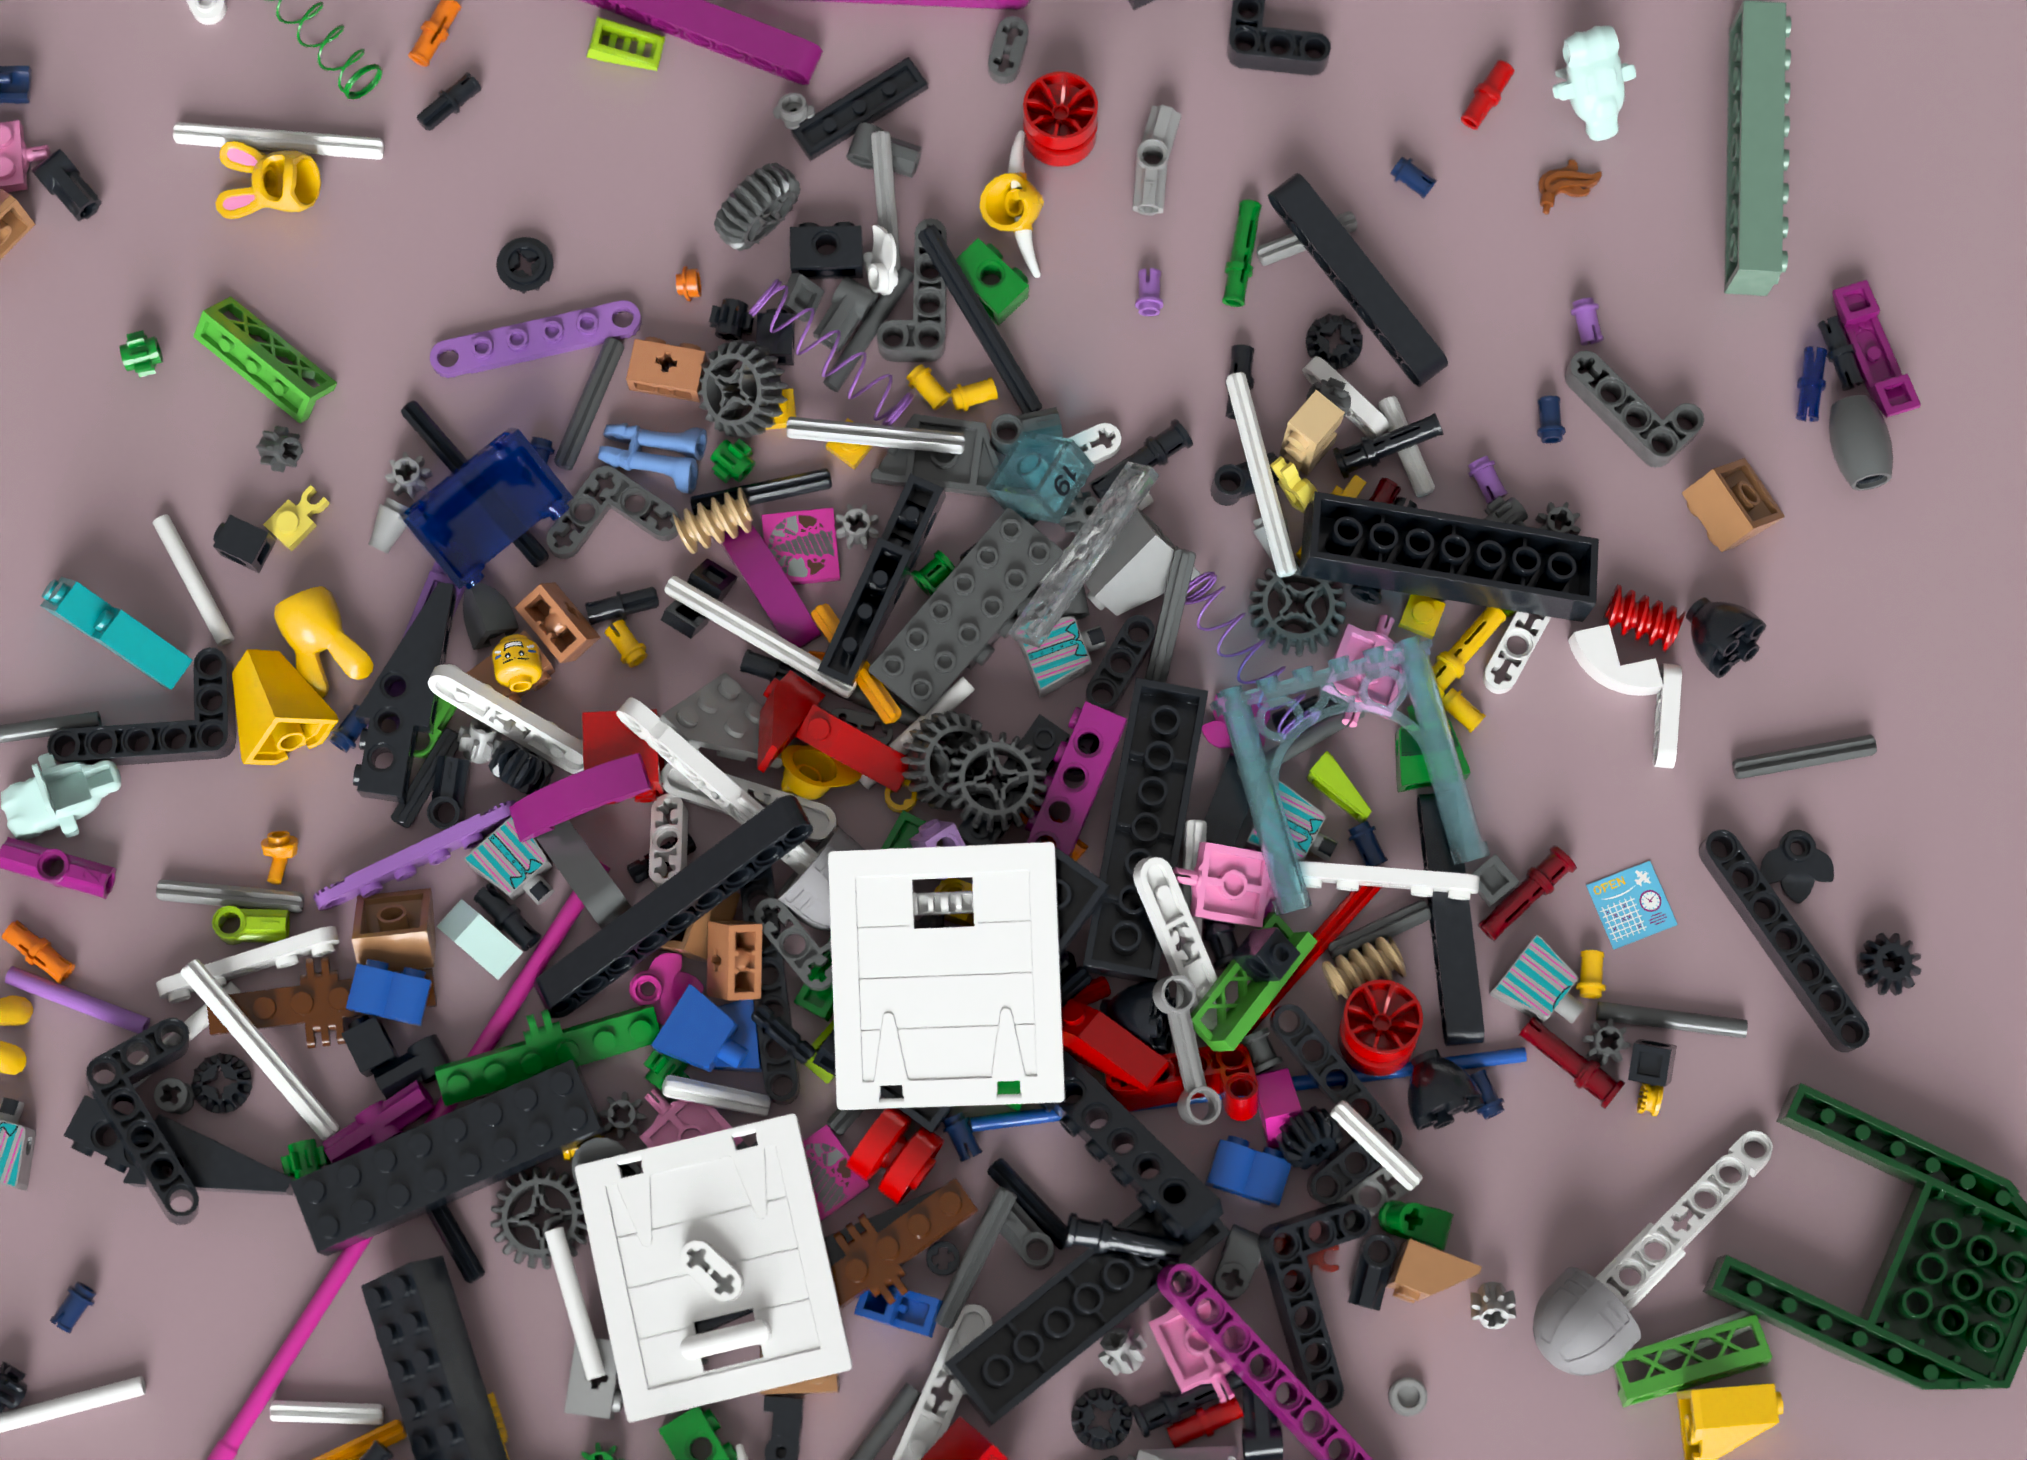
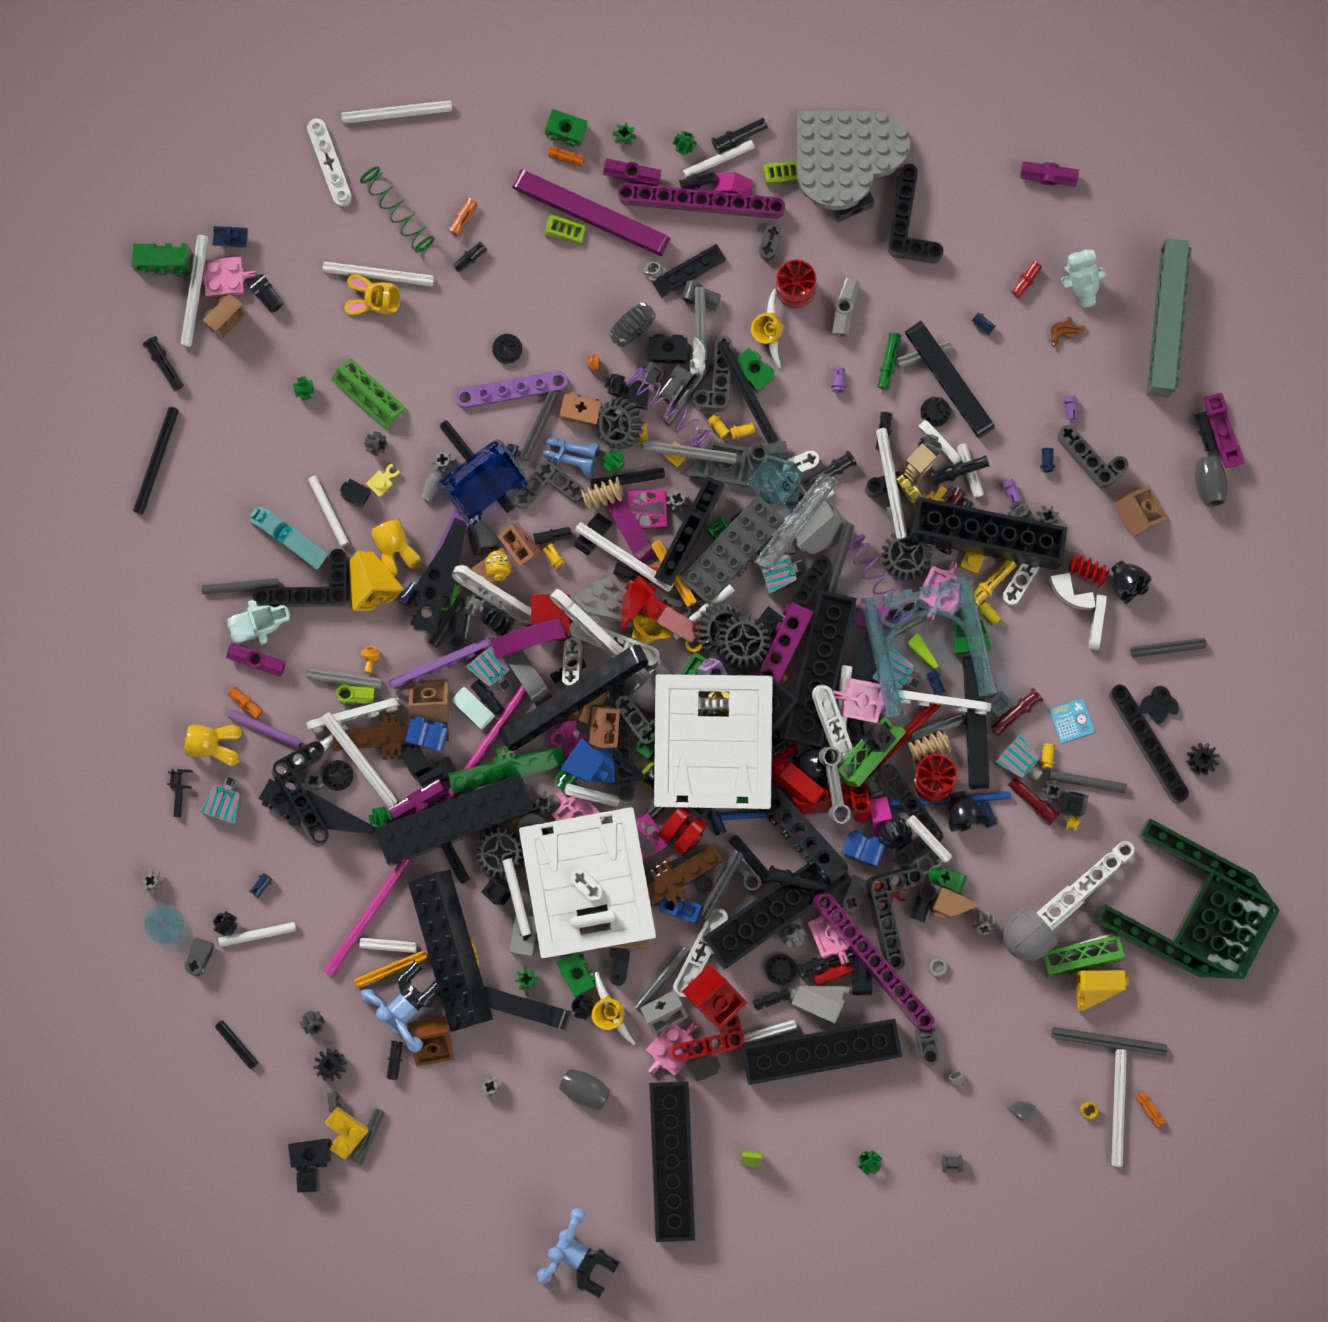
camera: 10 degrees right, 5 degrees up
(537, 1293) = (497, 891): none -> black brick
(1811, 384) = (1188, 447): clear blue pin -> none

